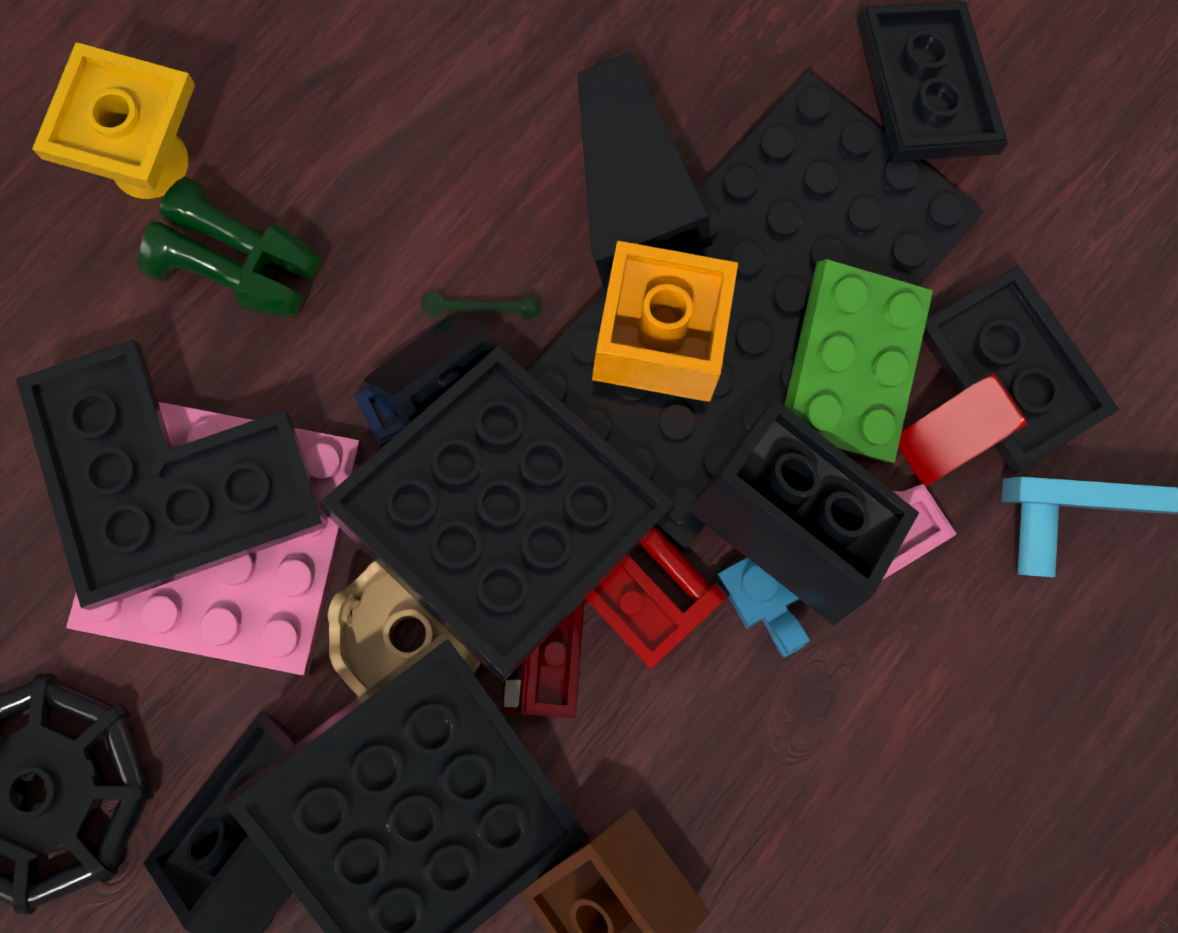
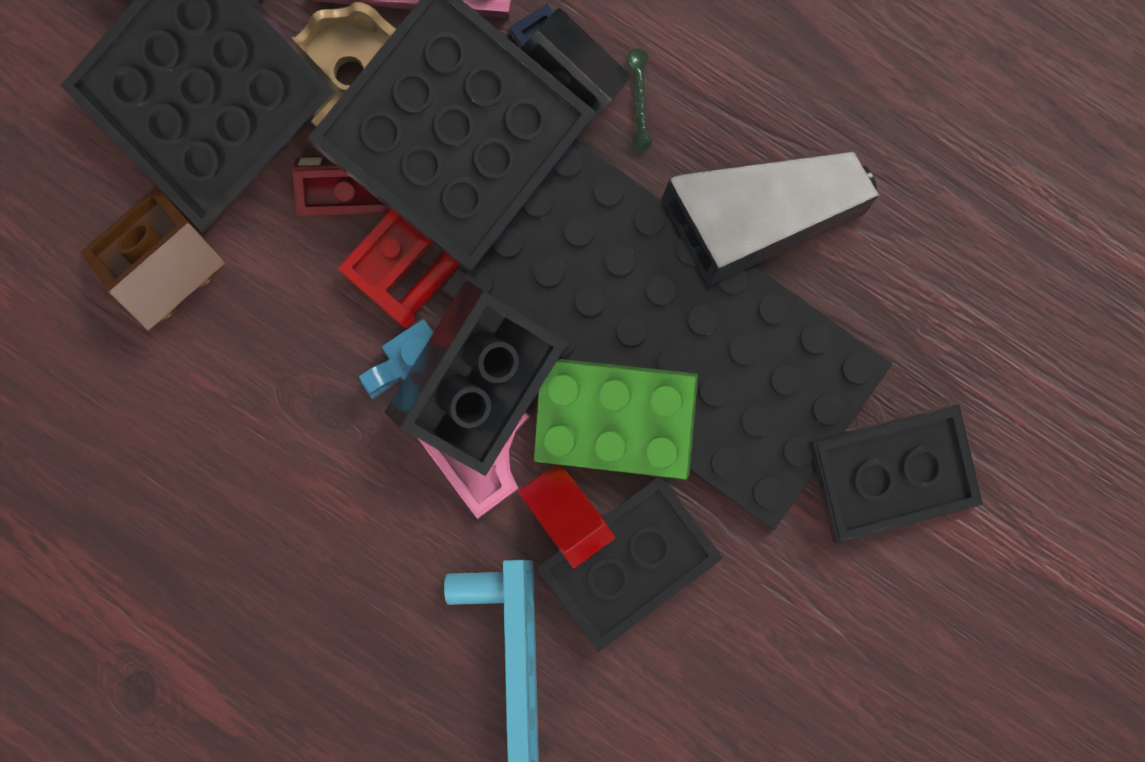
camera: 85 degrees right, 5 degrees up
(665, 321) = (624, 242): light orange slope -> none

